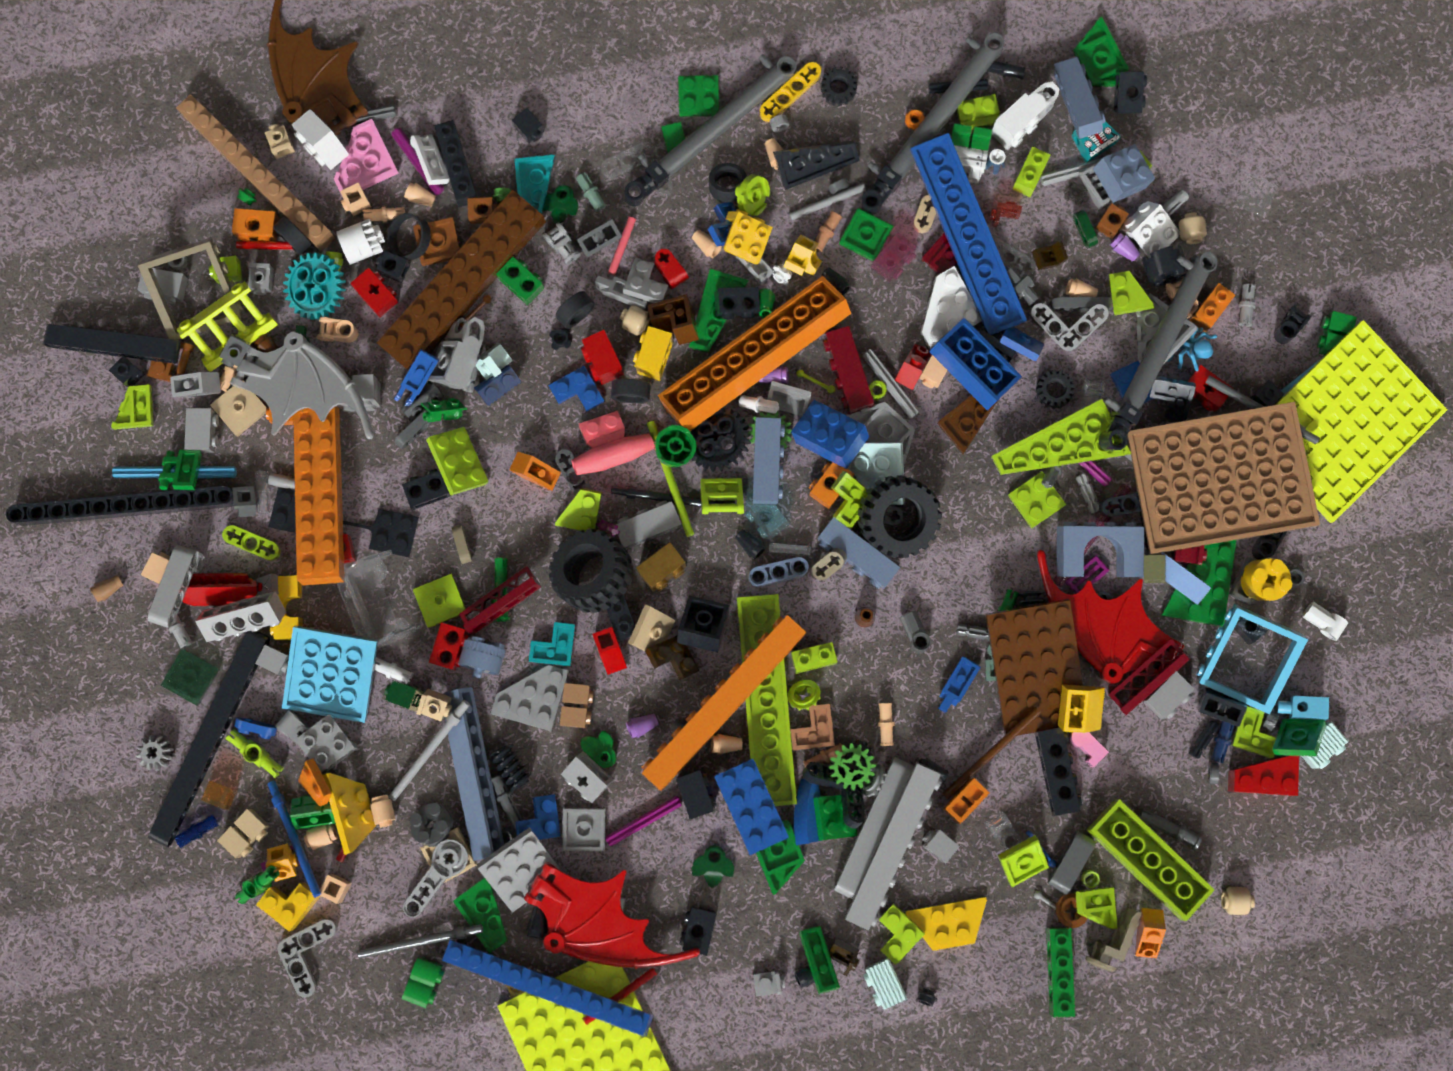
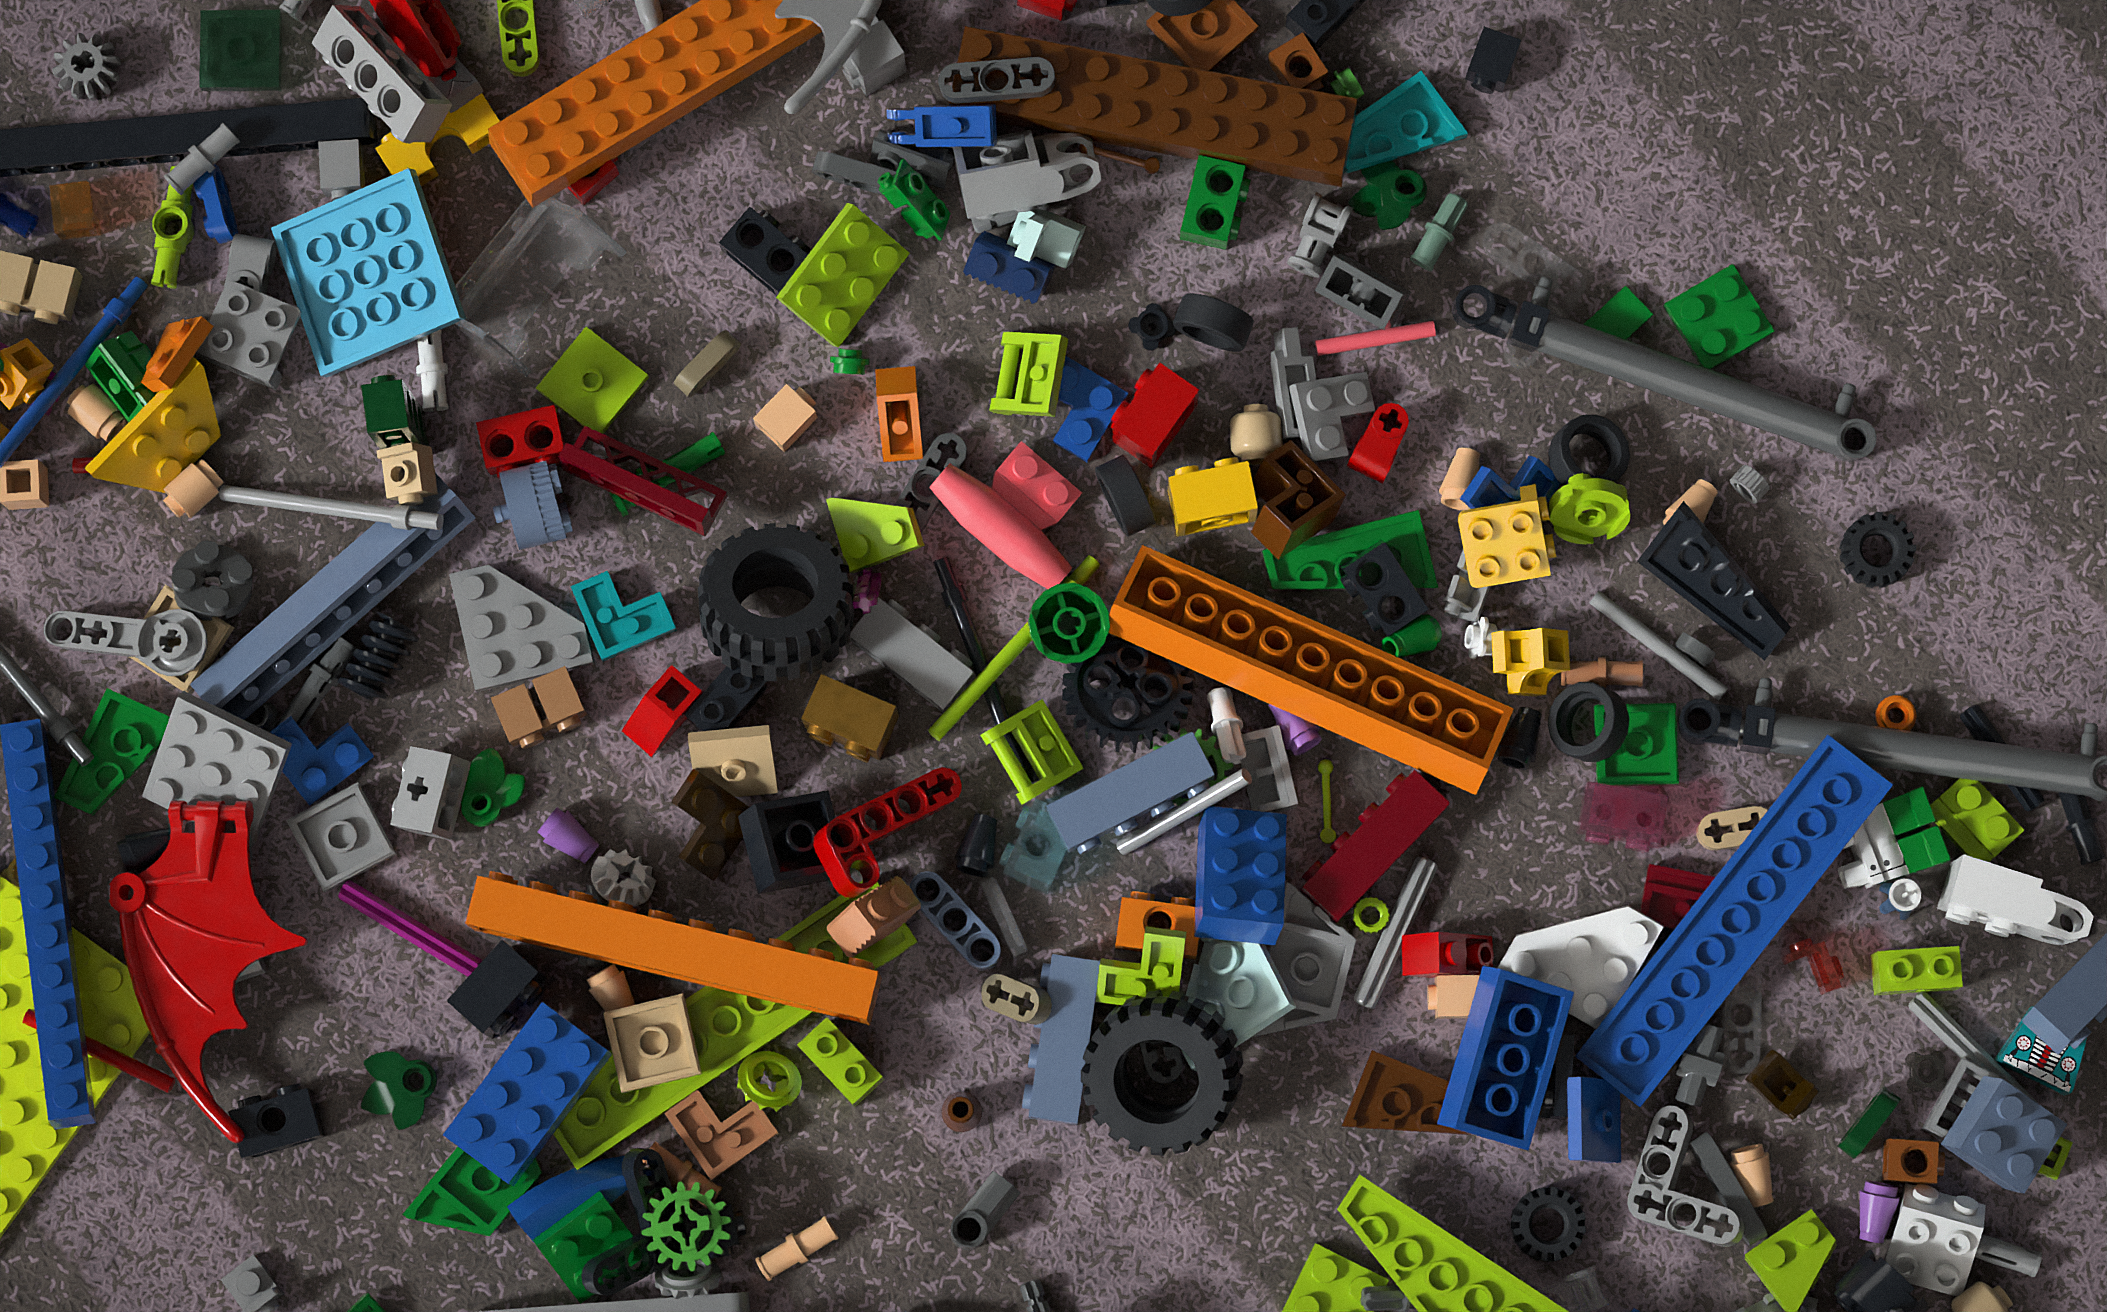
camera: 65 degrees right, 0 degrees up
(231, 721) = (201, 159): none -> light grey pin
(389, 532) = (662, 235): black hinge -> none
(398, 352) = (1009, 92): none -> dark grey beam
(498, 480) = (849, 362): none -> green plate
(507, 521) = (786, 416): none -> light nougat brick
(554, 399) = (1038, 374): none -> lime plate
(670, 717) = (631, 891): none -> white gear
(717, 574) = (889, 820): none -> red beam
(759, 605) = (873, 916): none -> nougat brick
(759, 737) = (652, 1043): none -> tan plate
(788, 90) = (1820, 466): yellow beam -> none
(789, 414) = (1184, 811): none -> light grey bar
(833, 256) = (1562, 715): none -> black tyre

